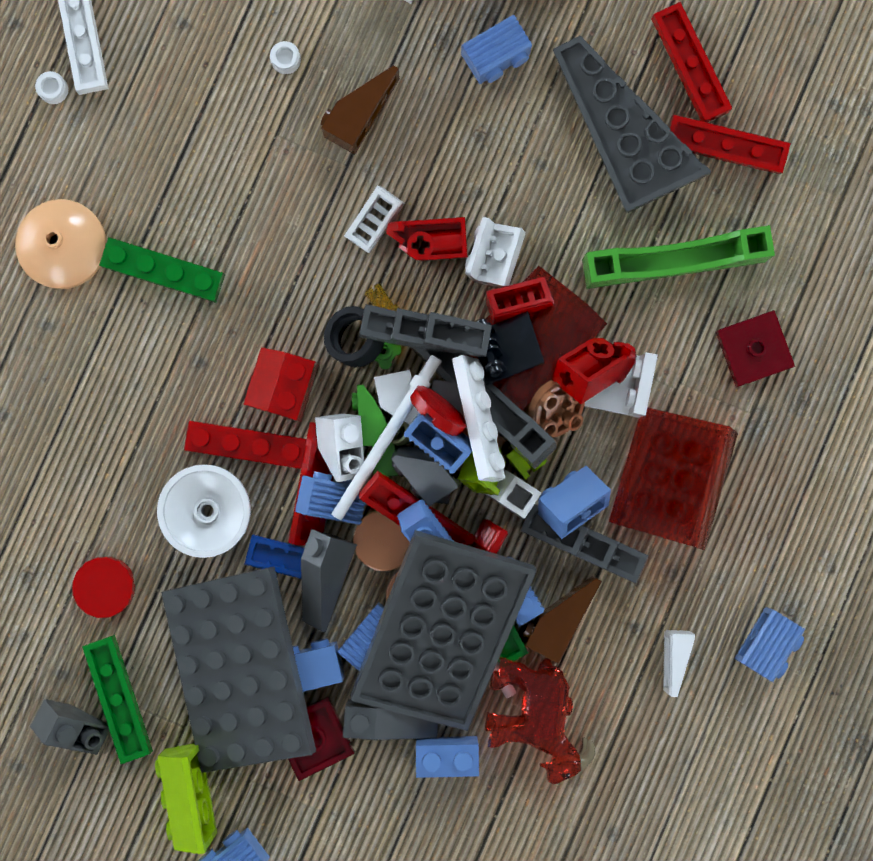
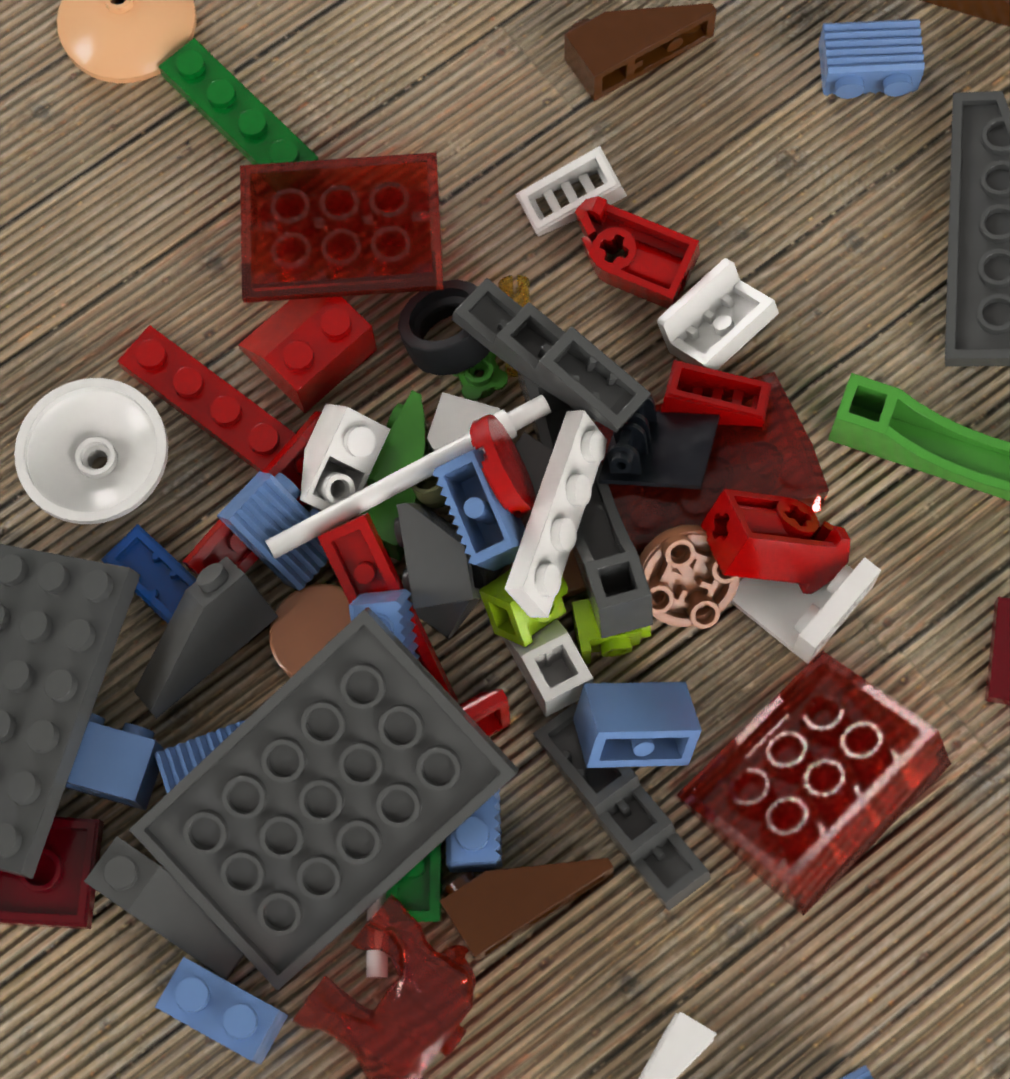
camera: 35 degrees right, 15 degrees down
(265, 314) = (341, 227): none -> clear red slope

